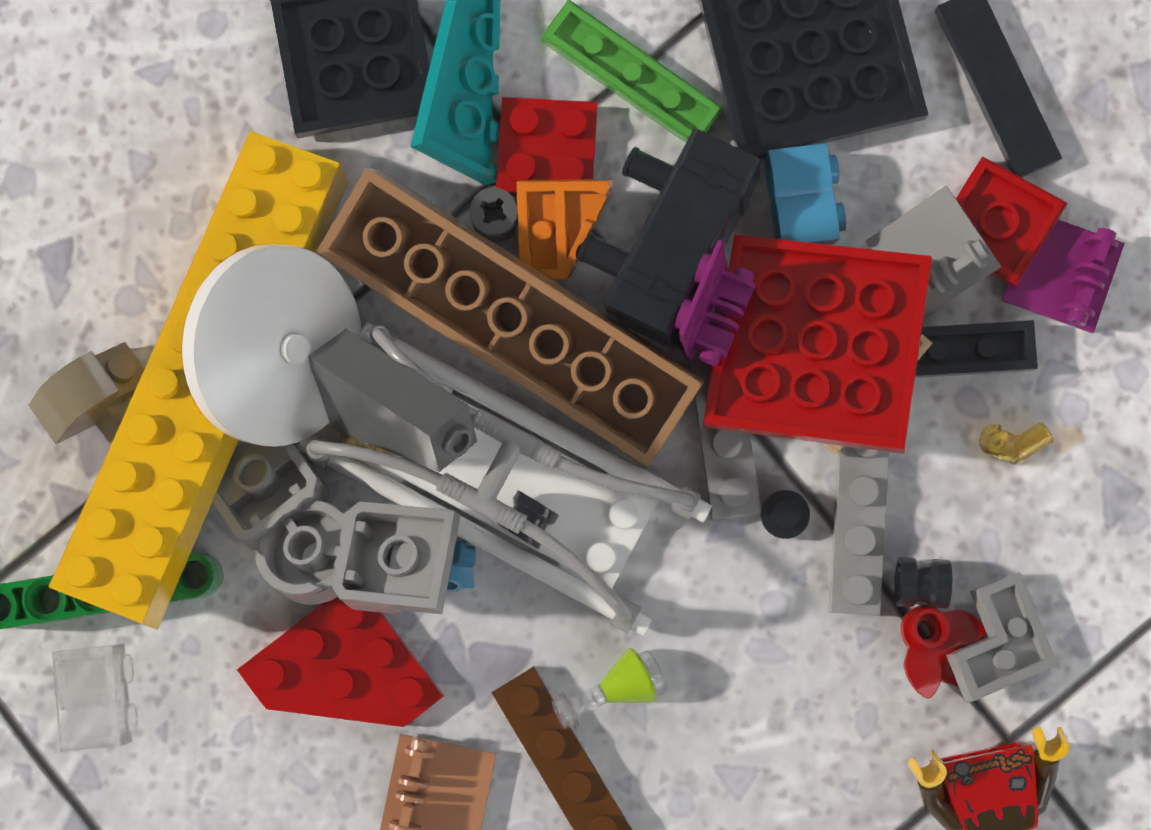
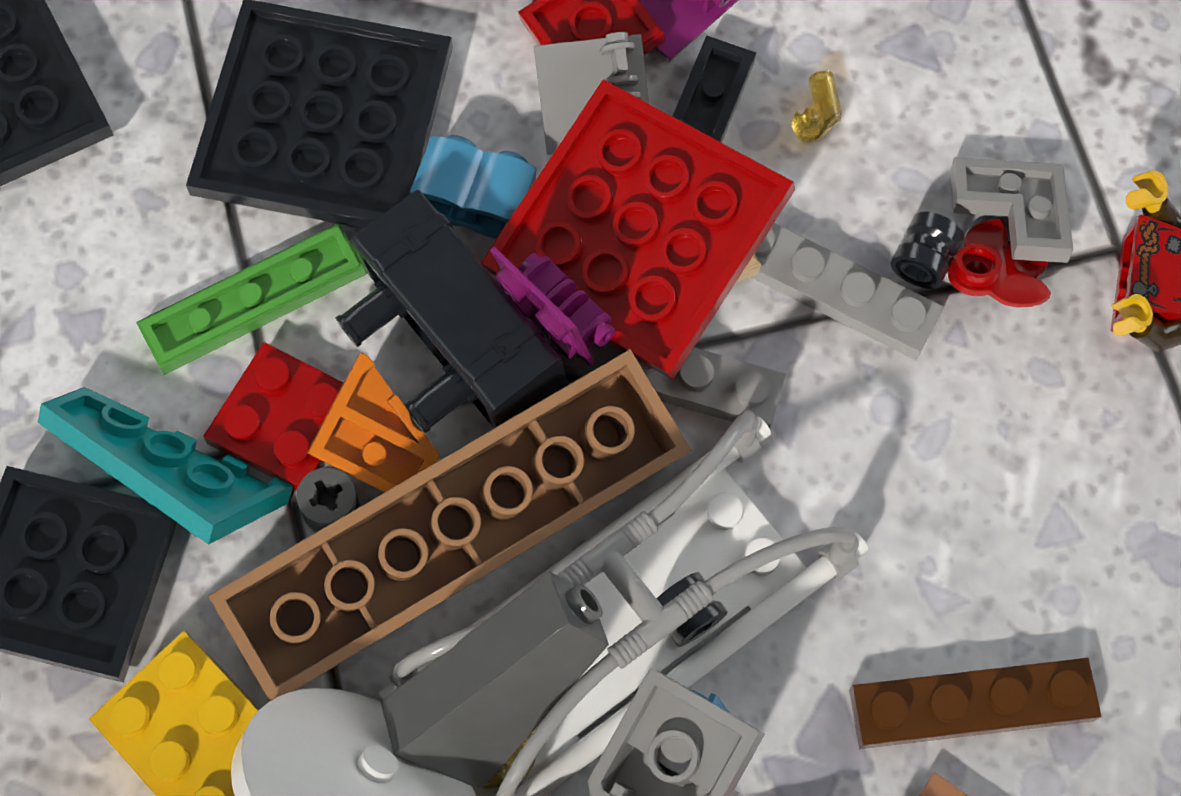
camera: 75 degrees left, 15 degrees down
(630, 680) = (911, 583): piece -> none
(785, 514) = (797, 352): black plate -> none

